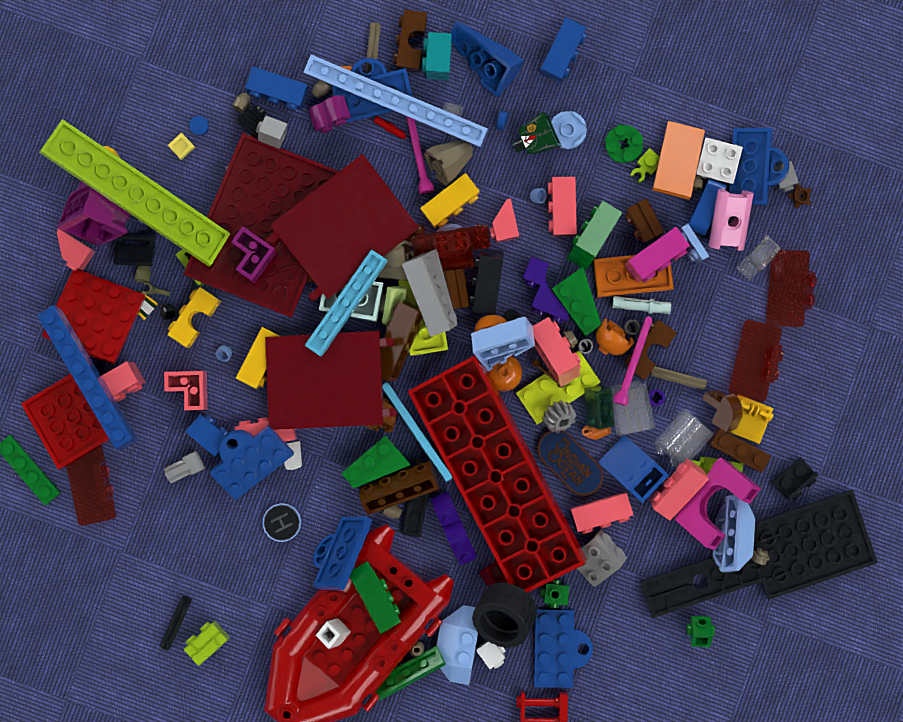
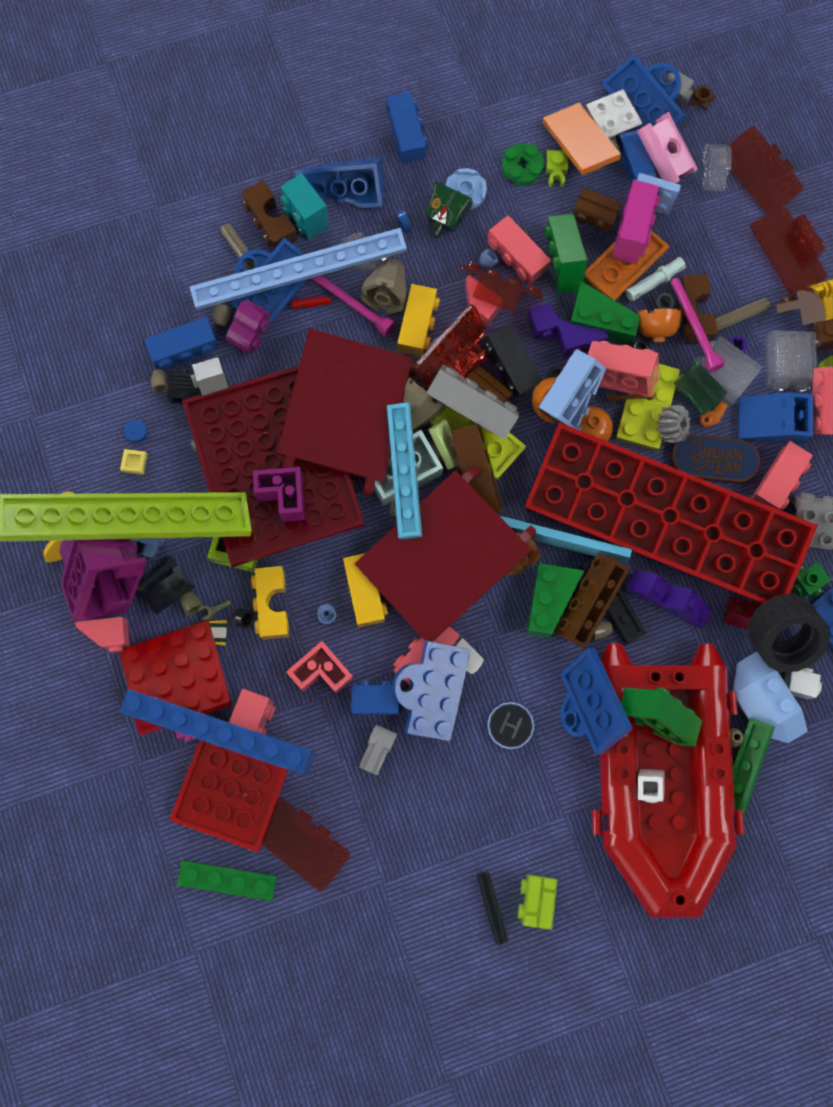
camera: 45 degrees left, 10 degrees down
(522, 225) = (499, 291): none -> clear red bracket

